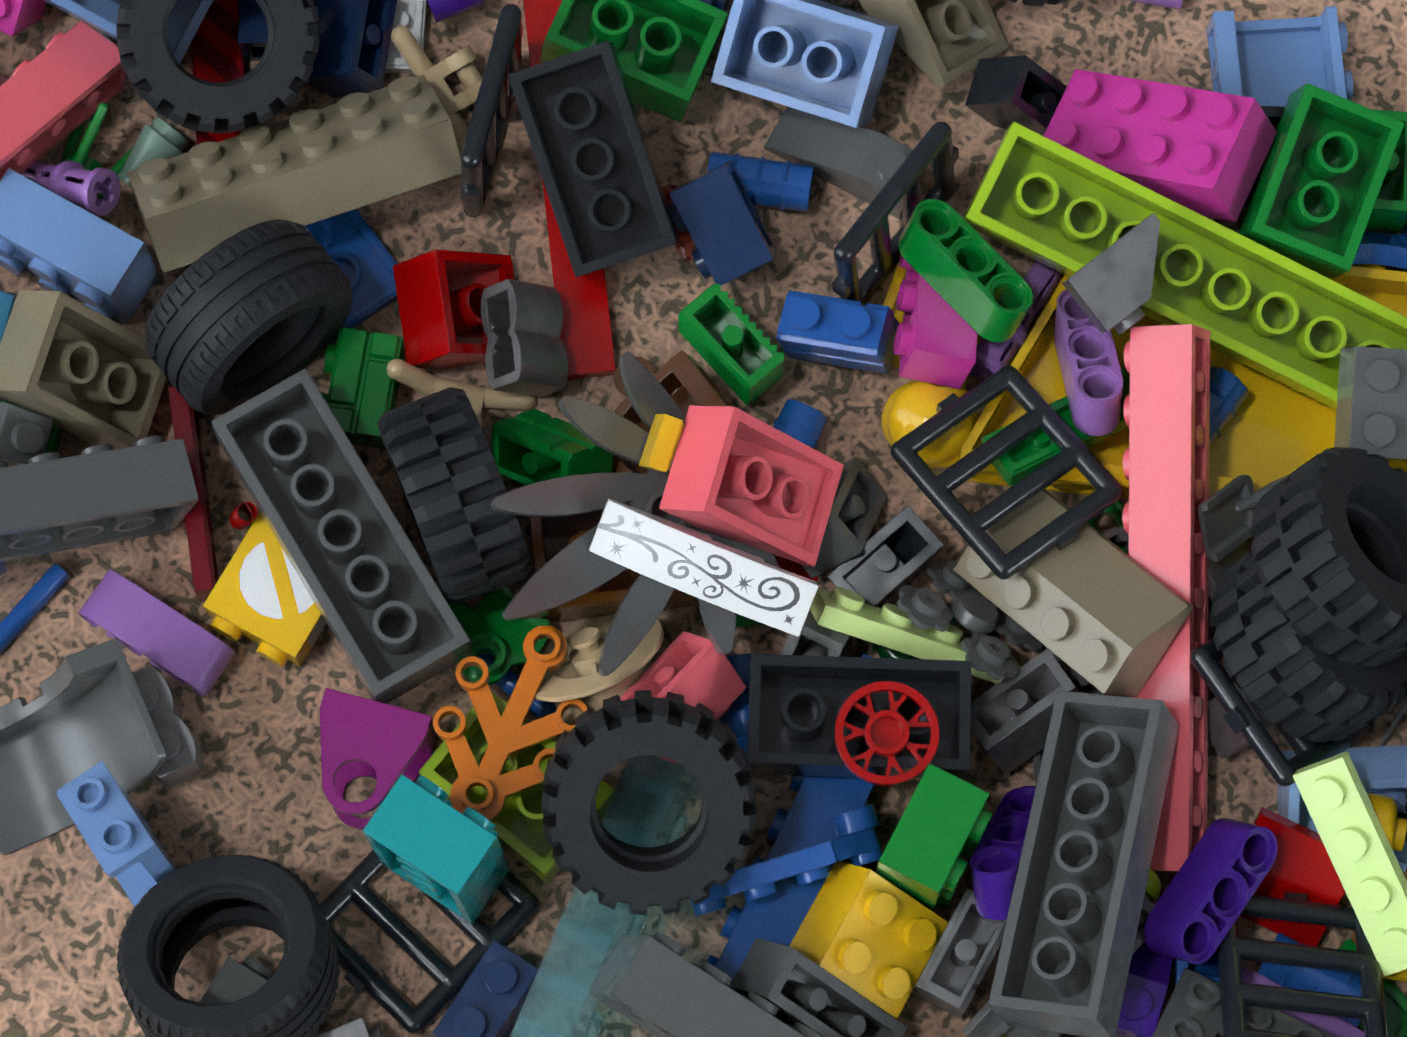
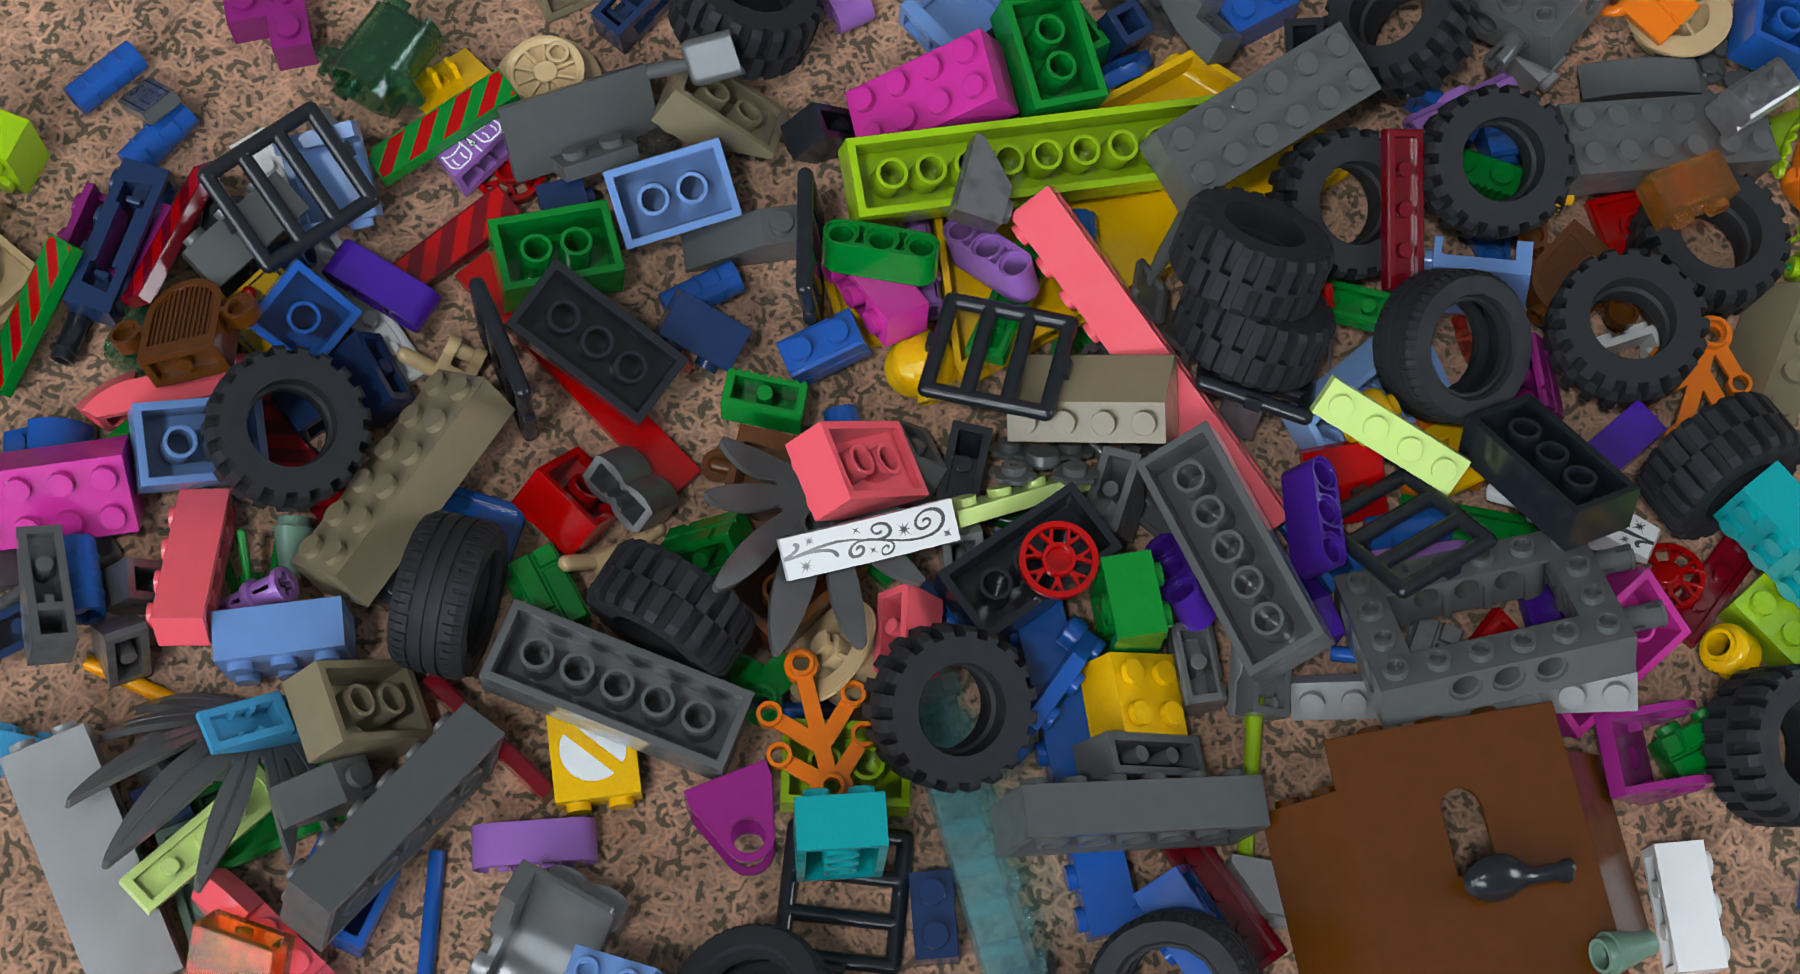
camera: 45 degrees left, 5 degrees down
(237, 522) = (535, 727): red piece -> none
(661, 443) = (782, 481): yellow tile -> none

